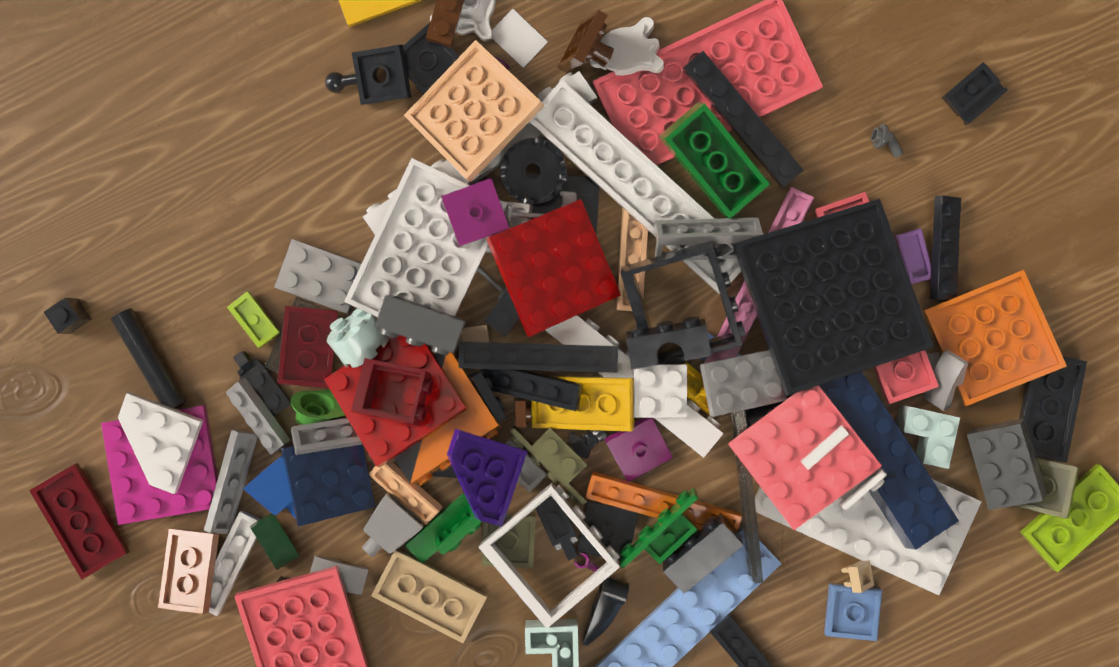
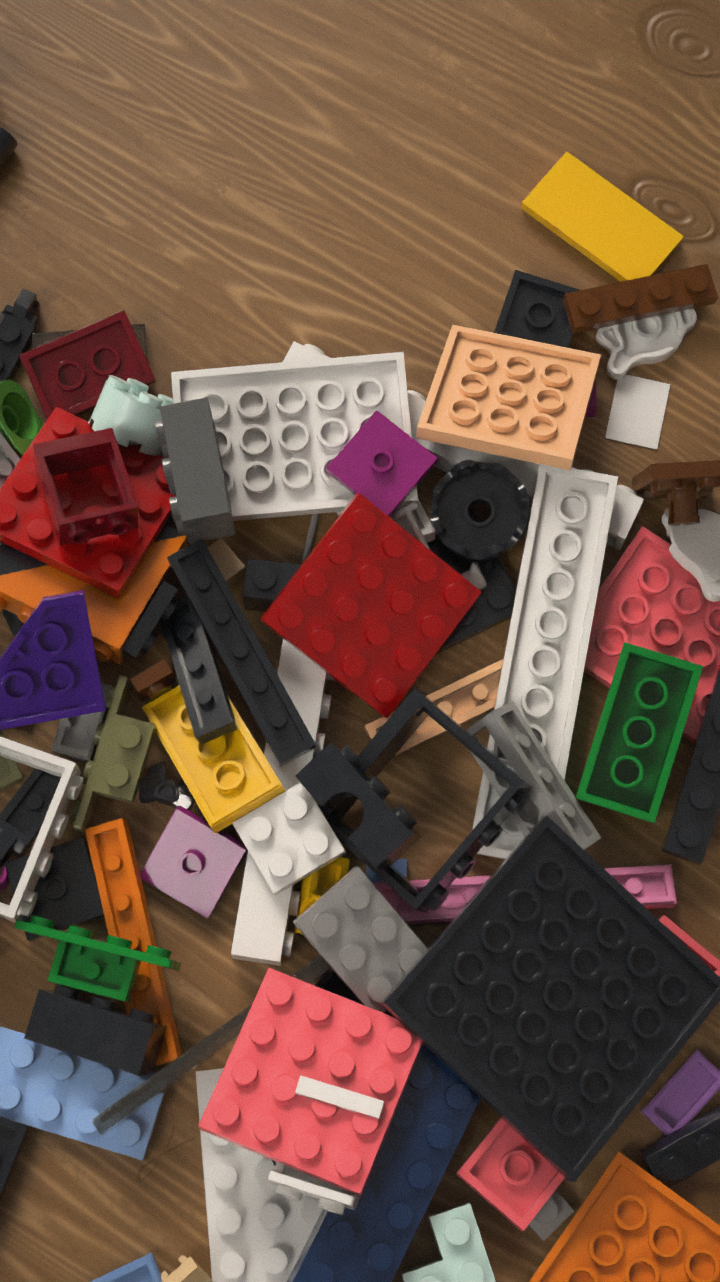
camera: 60 degrees right, 15 degrees down
(253, 319) = (85, 289): lime plate -> none
(317, 275) = (184, 330): light grey plate -> none
(366, 66) = (484, 248): black plate -> none
(949, 374) = (548, 1236): light grey slope -> none

